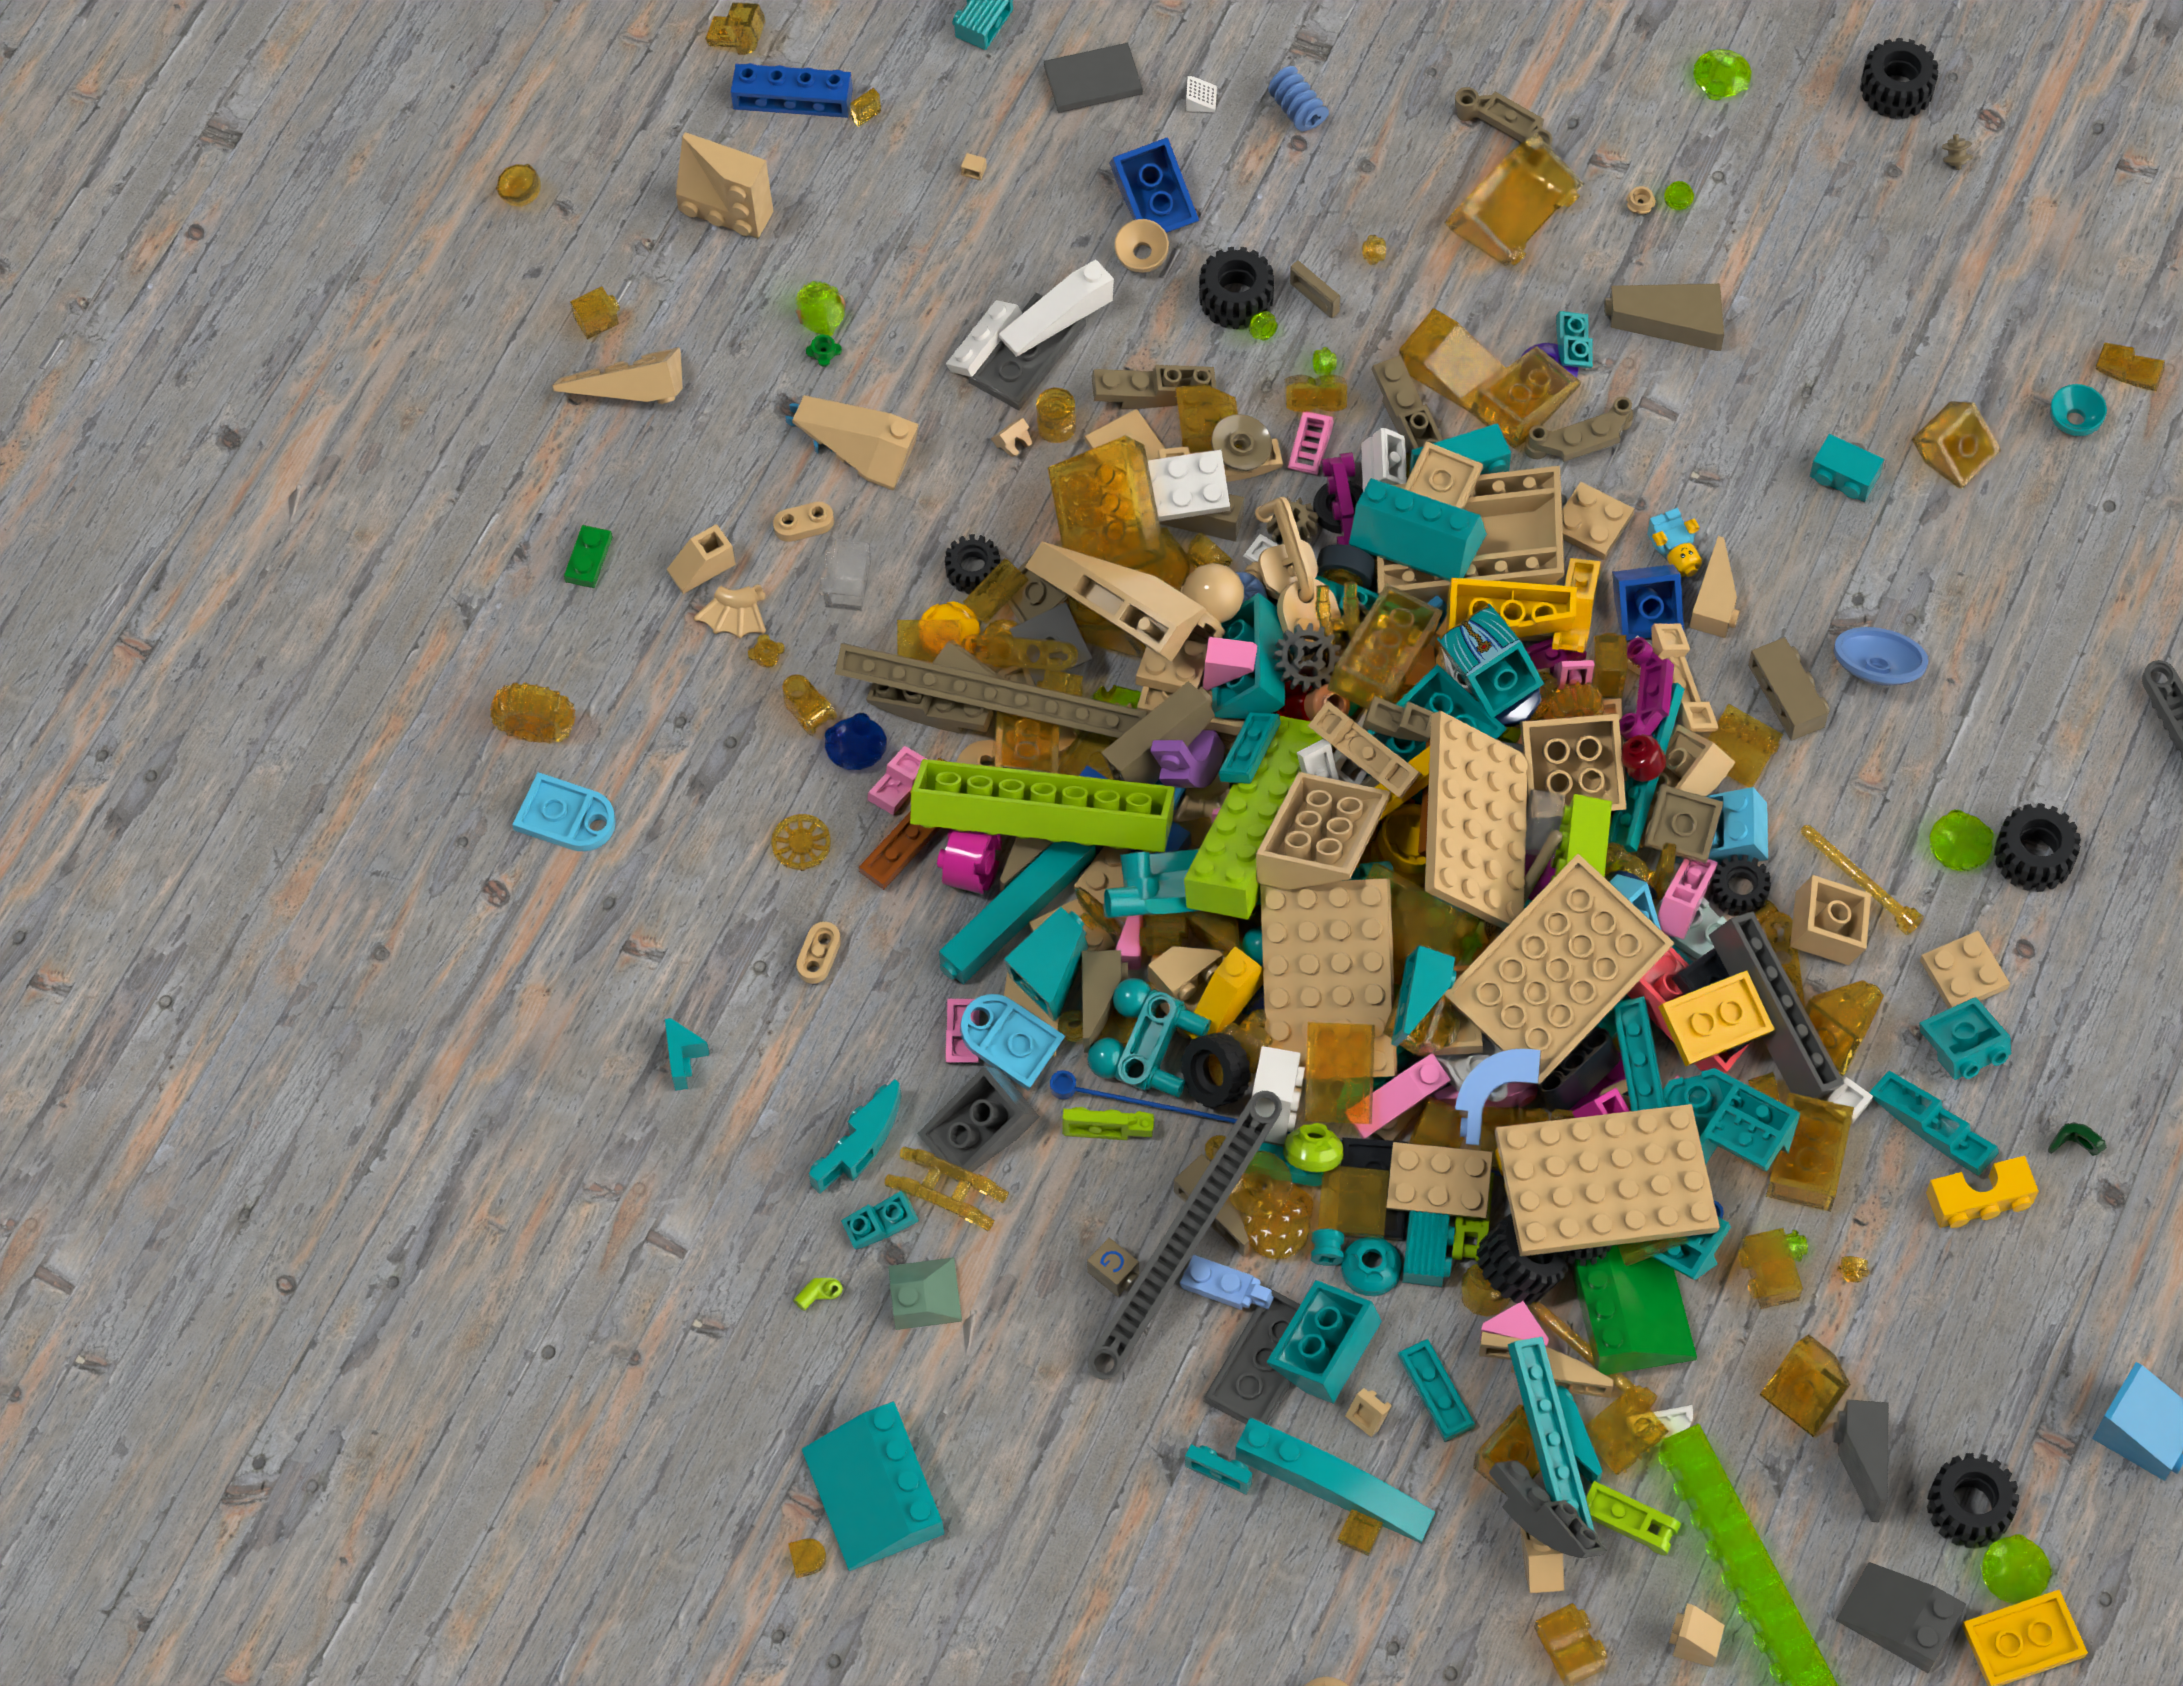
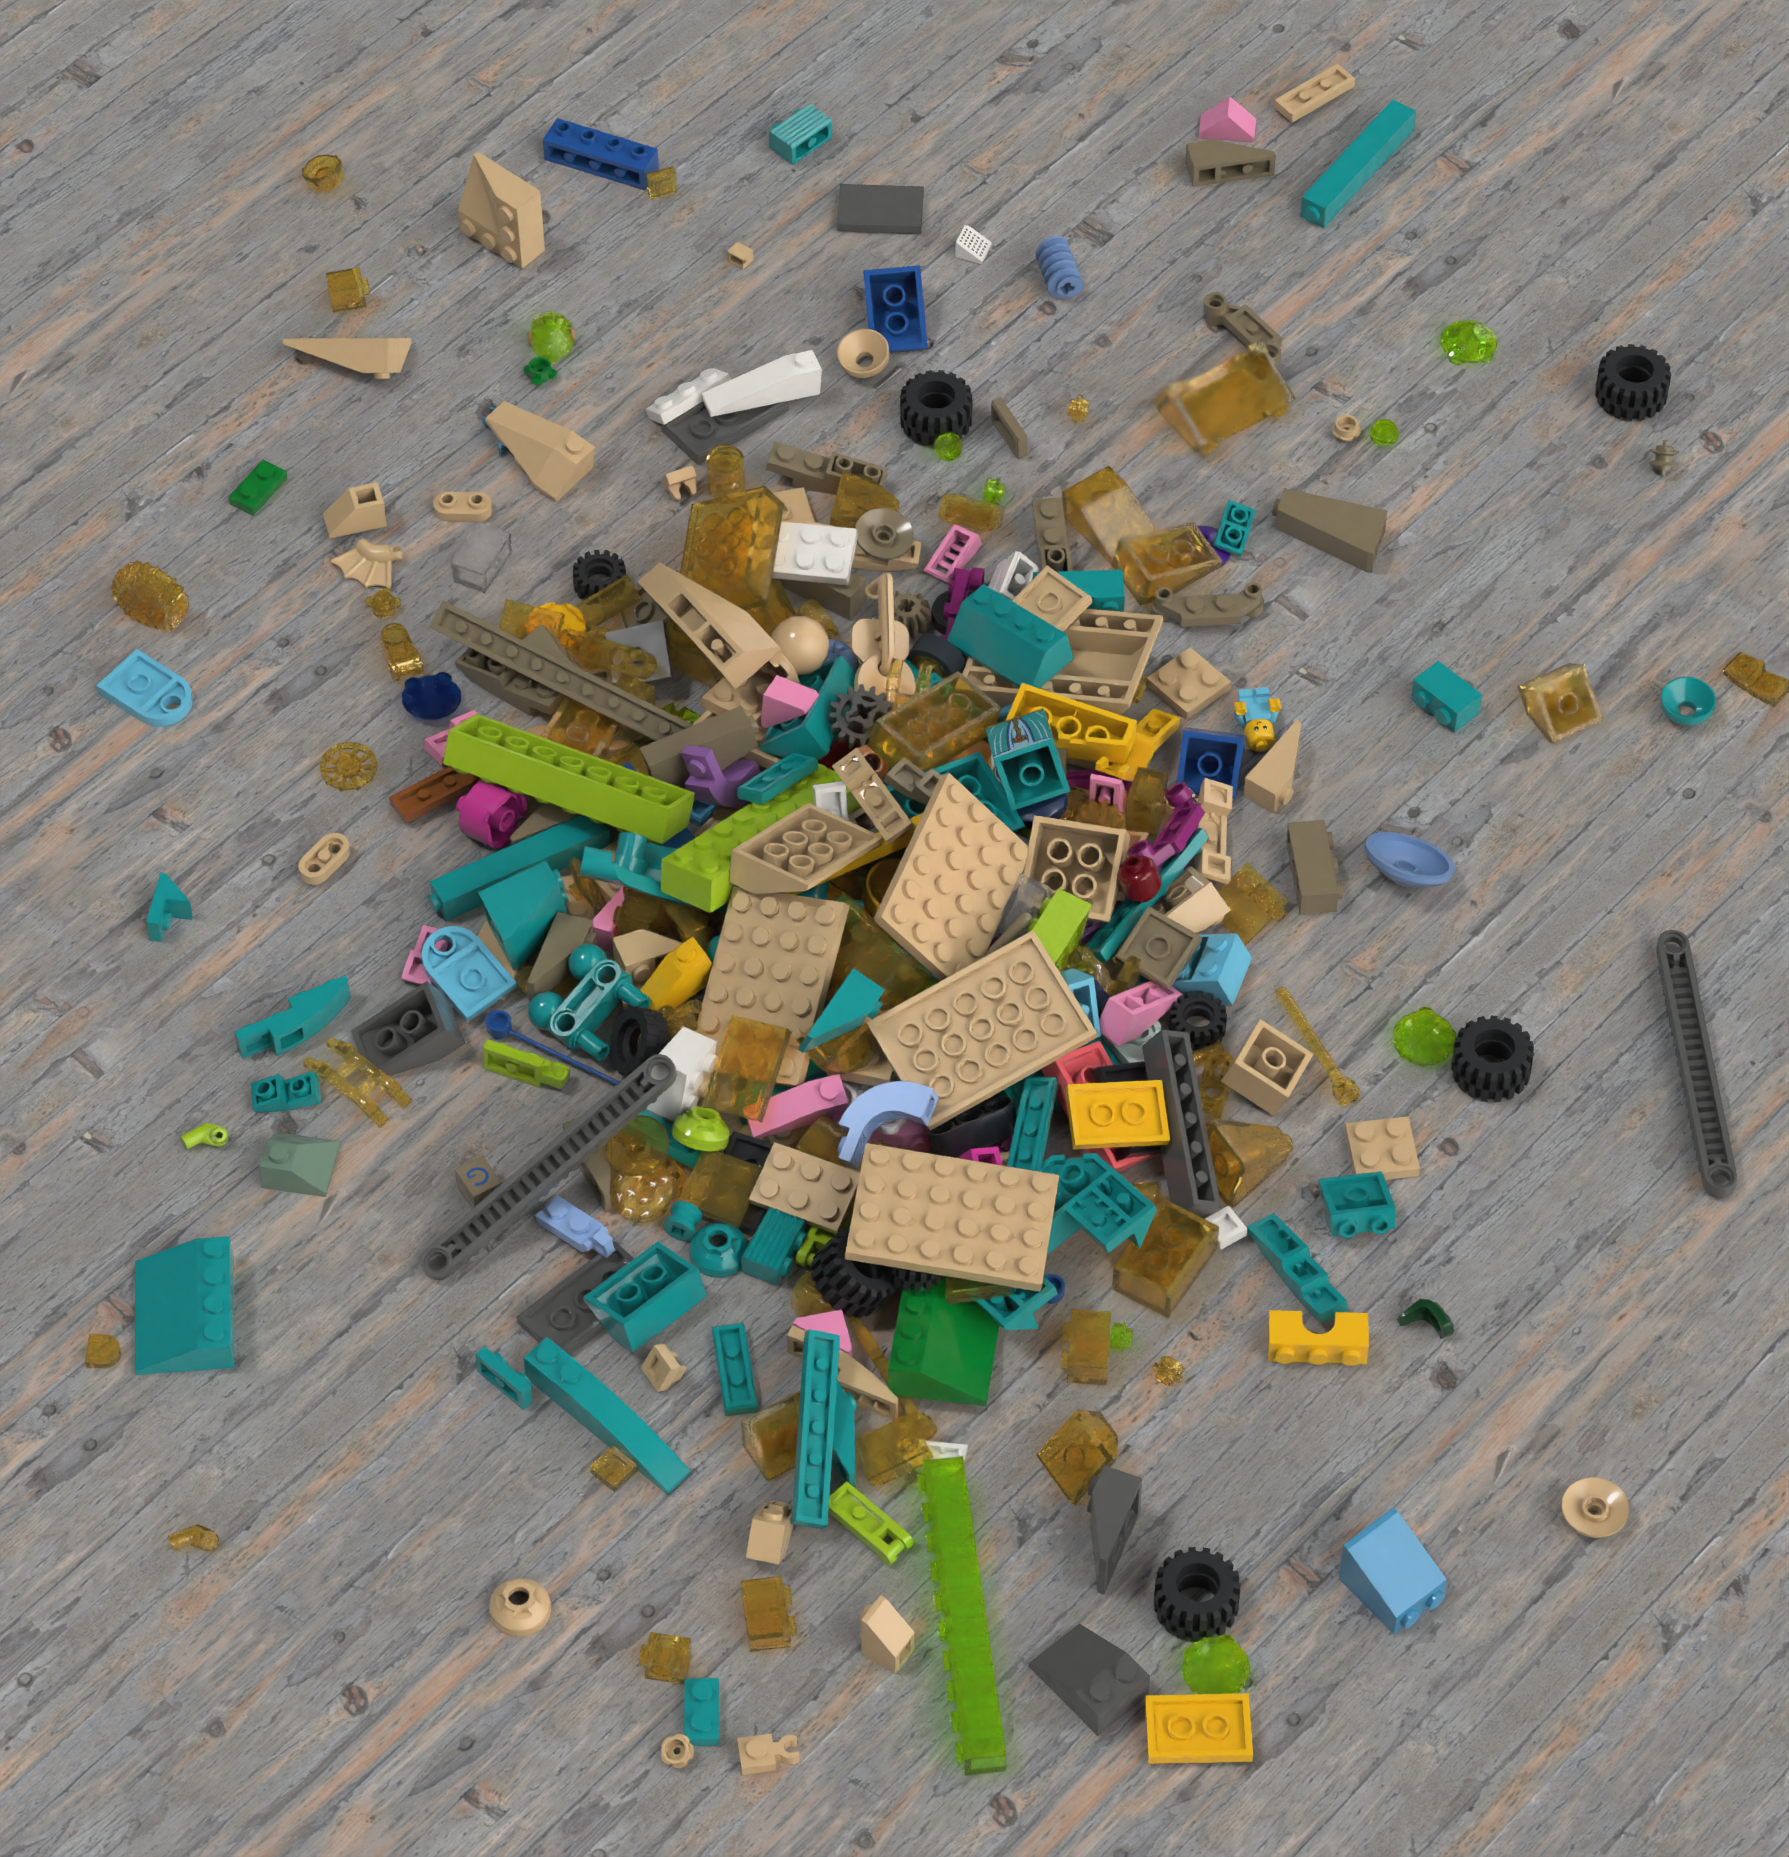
camera: 15 degrees right, 10 degrees down
(739, 29) = (573, 91): clear yellow brick -> none
(1547, 1521) = (775, 1486): dark grey slope -> none

